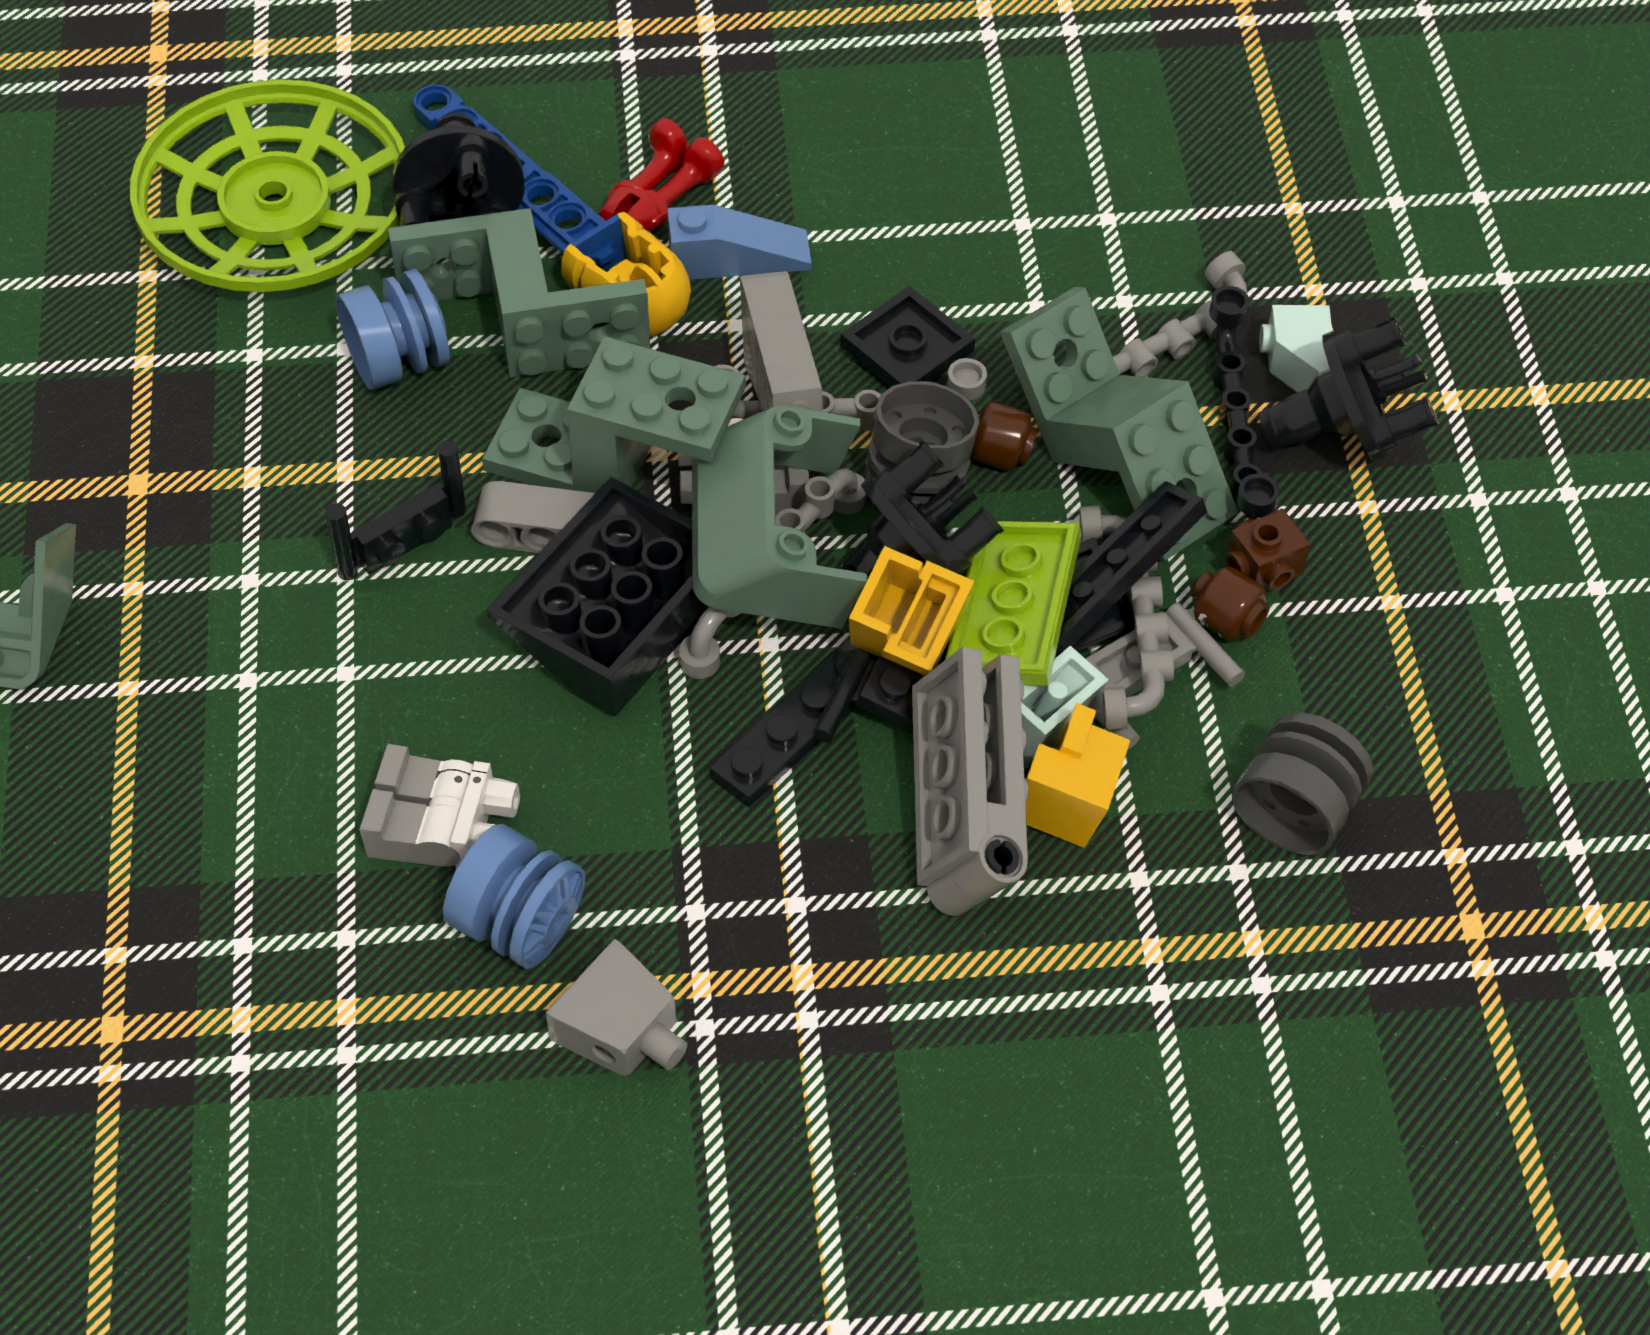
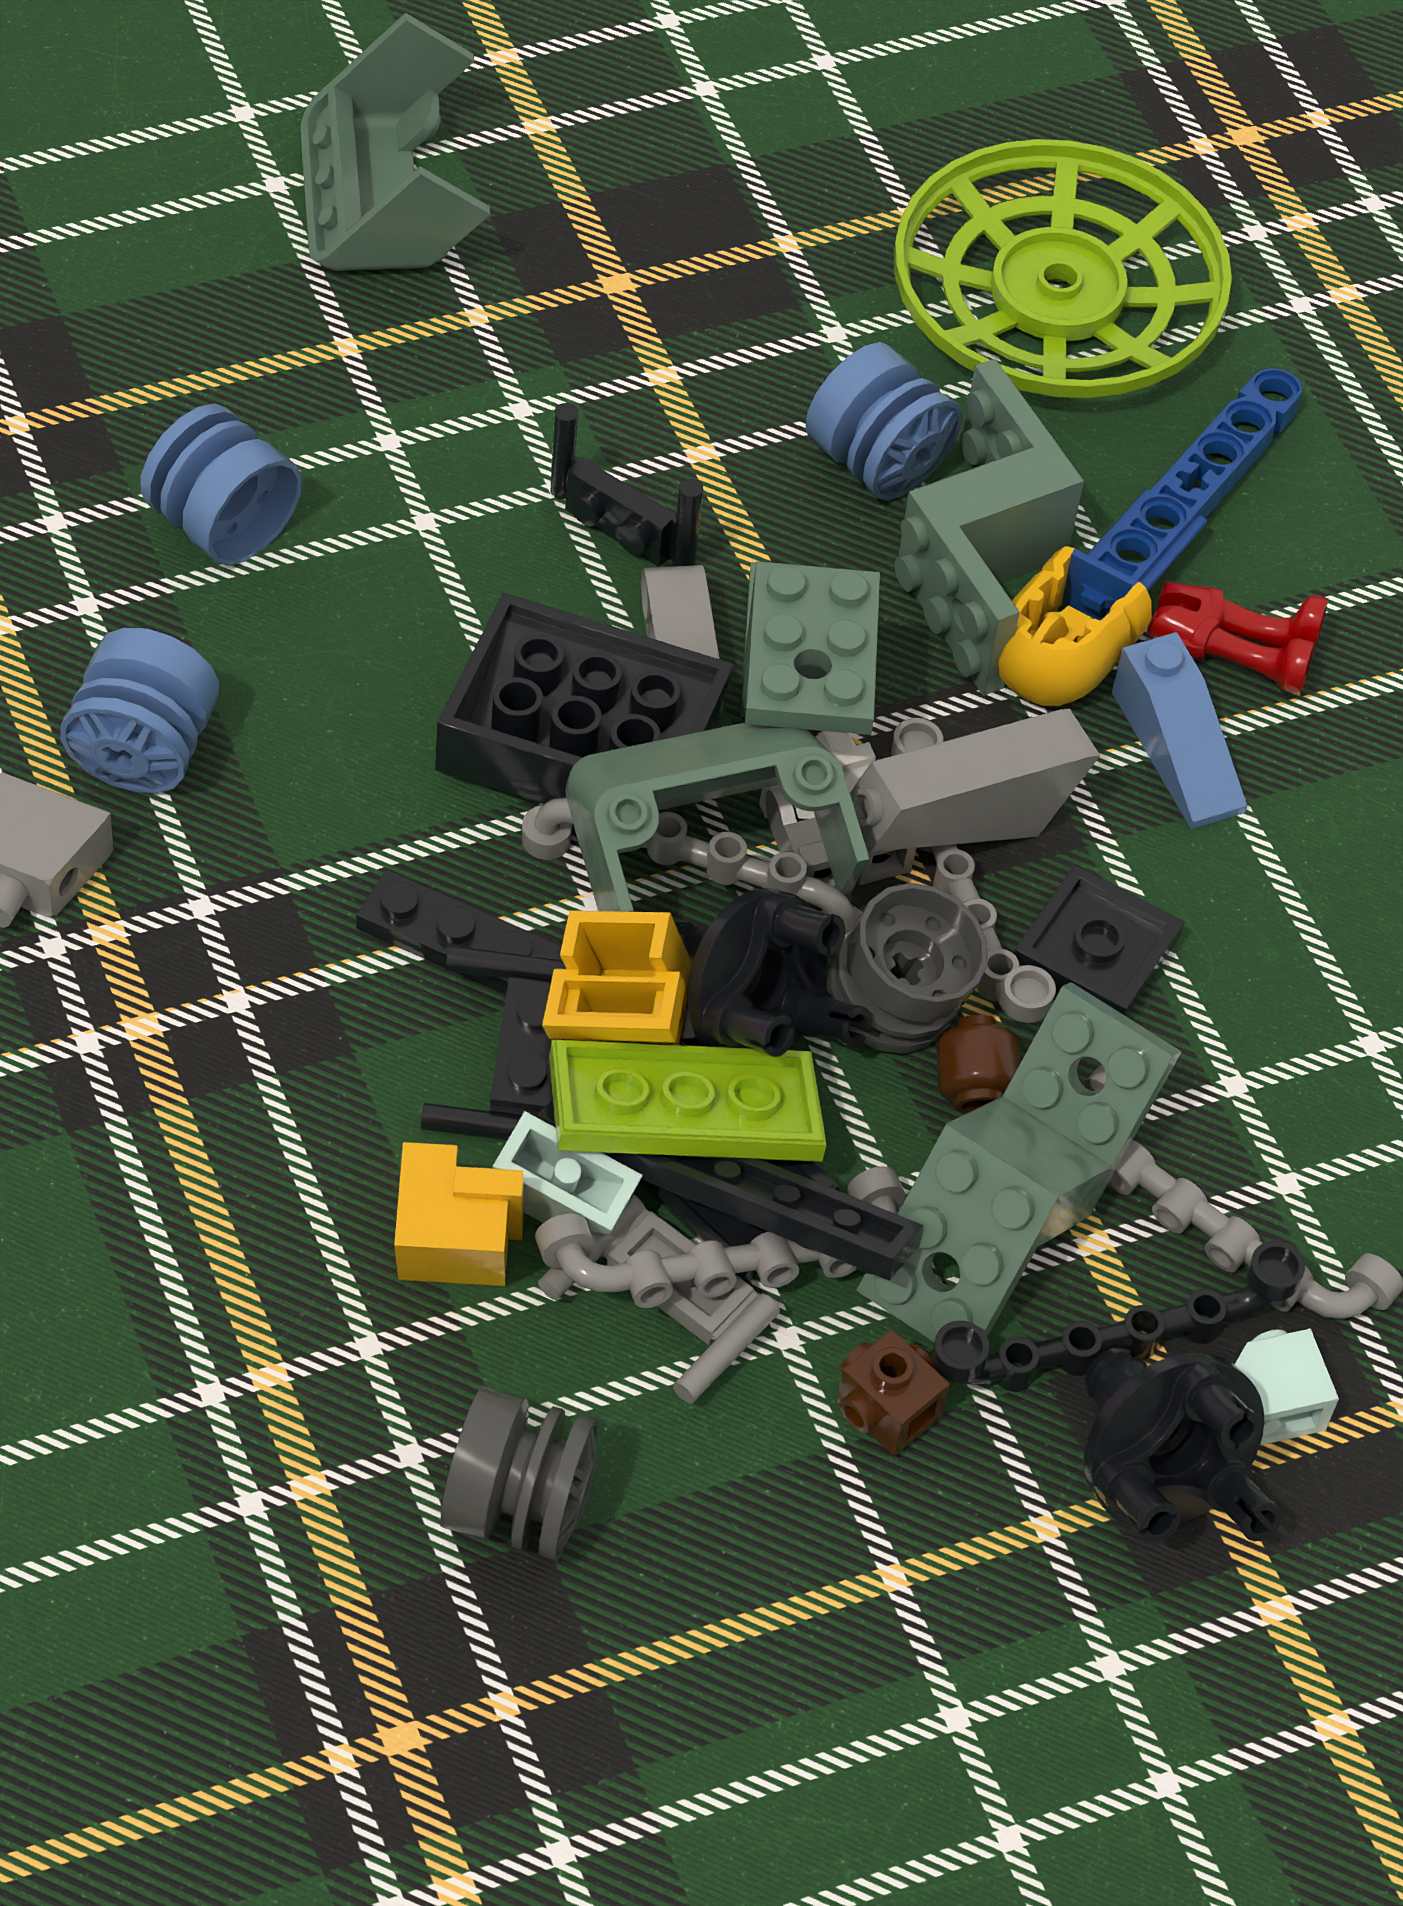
camera: 70 degrees right, 0 degrees up
(285, 790) = (221, 484): none -> medium blue wheel
(432, 808) = (260, 650): hips -> none
(456, 174) = (1124, 417): black piece -> none
(969, 779) = (318, 1101): light grey hinge -> none
(1230, 603) = (796, 1364): reddish brown head -> none

